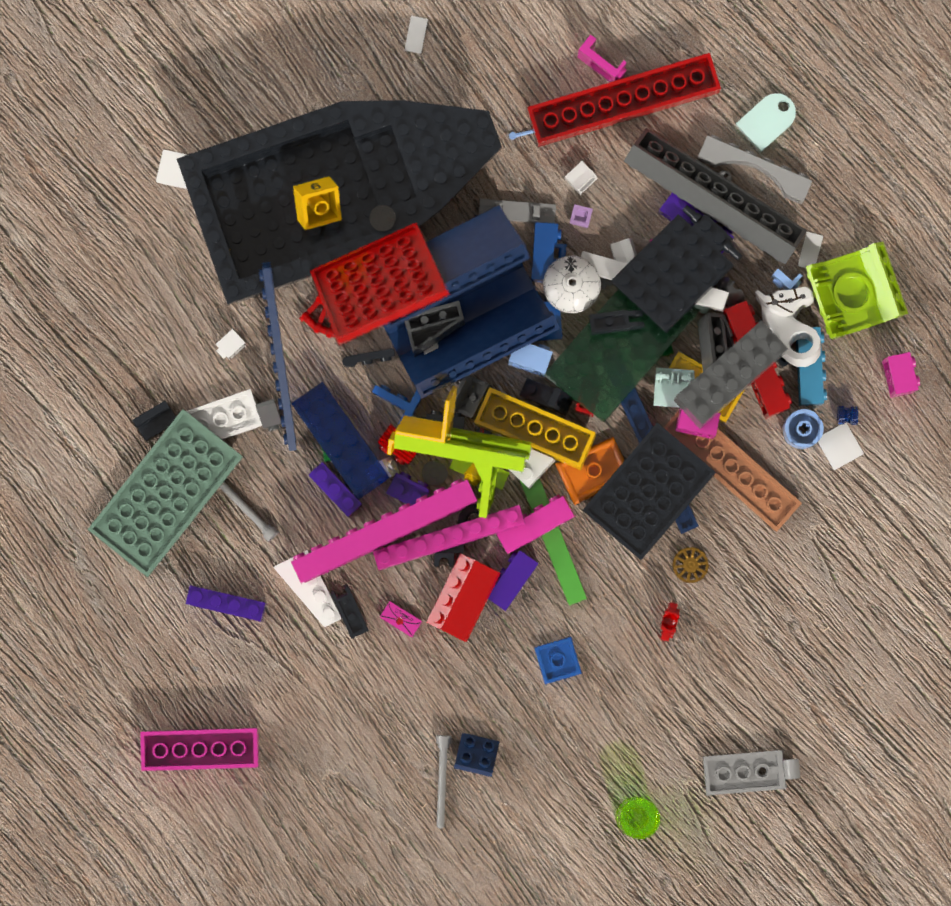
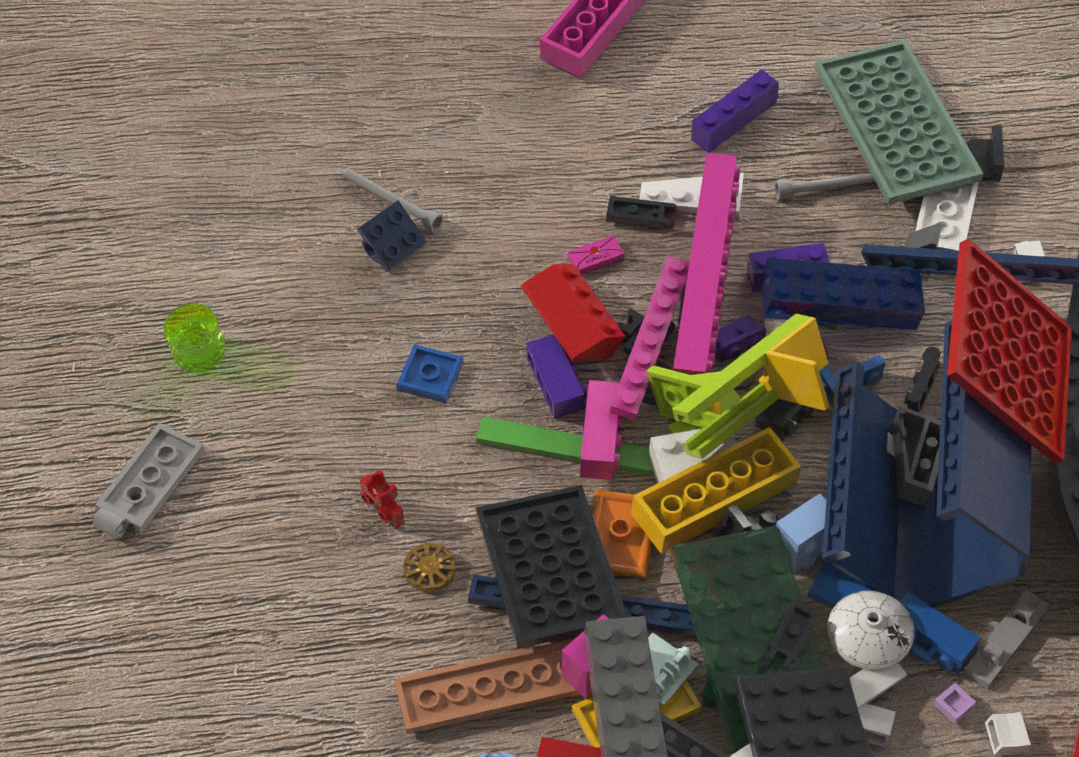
camera: 125 degrees right, 30 degrees down
(470, 396) = (808, 451): dark grey bracket -> none

